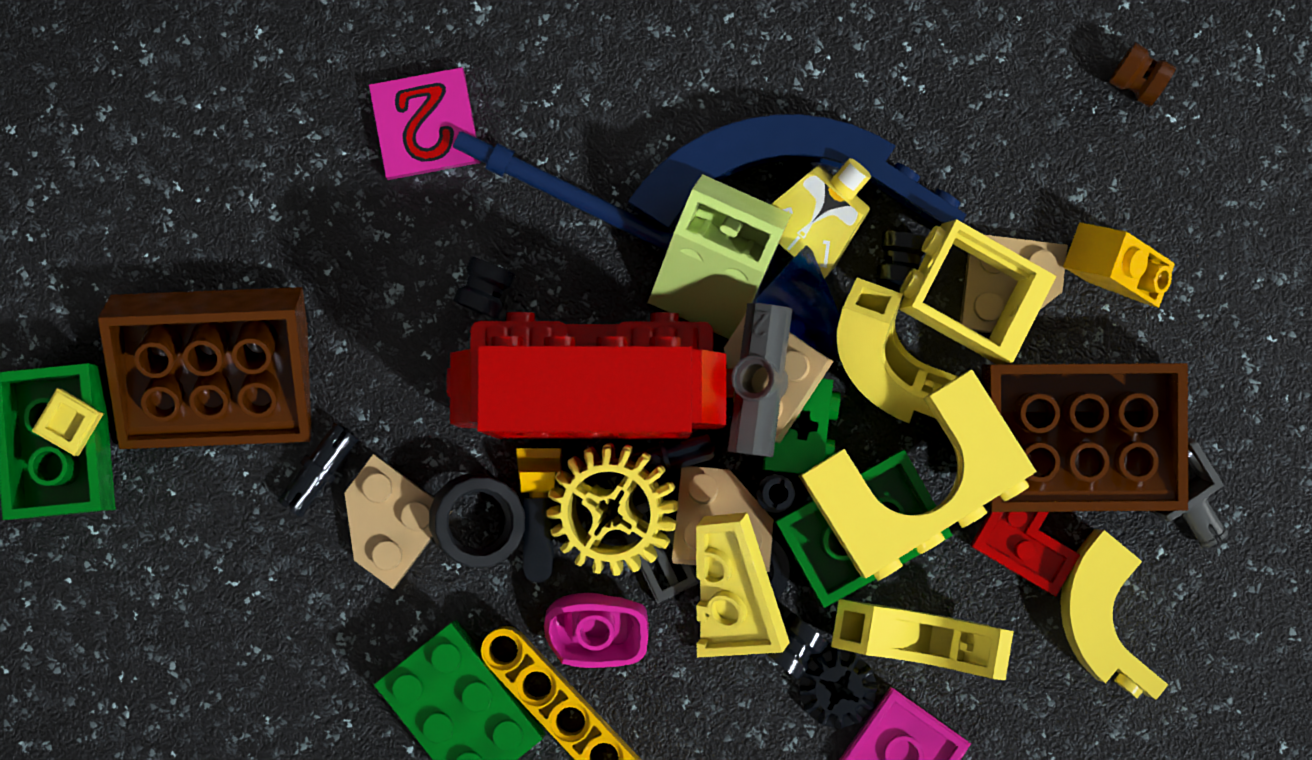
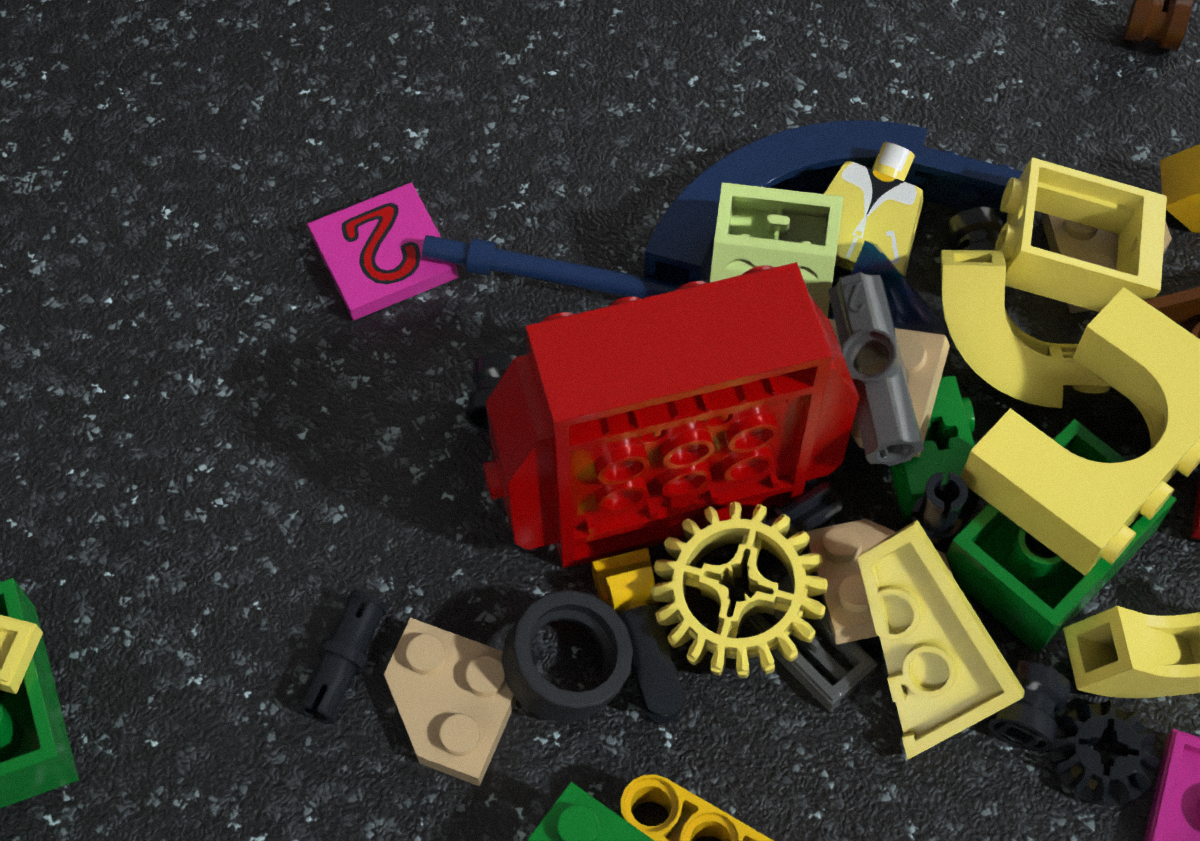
camera: 15 degrees left, 25 degrees down
(208, 367) = (172, 572): reddish brown slope -> none
(596, 630) = (767, 750): dark pink piece -> none

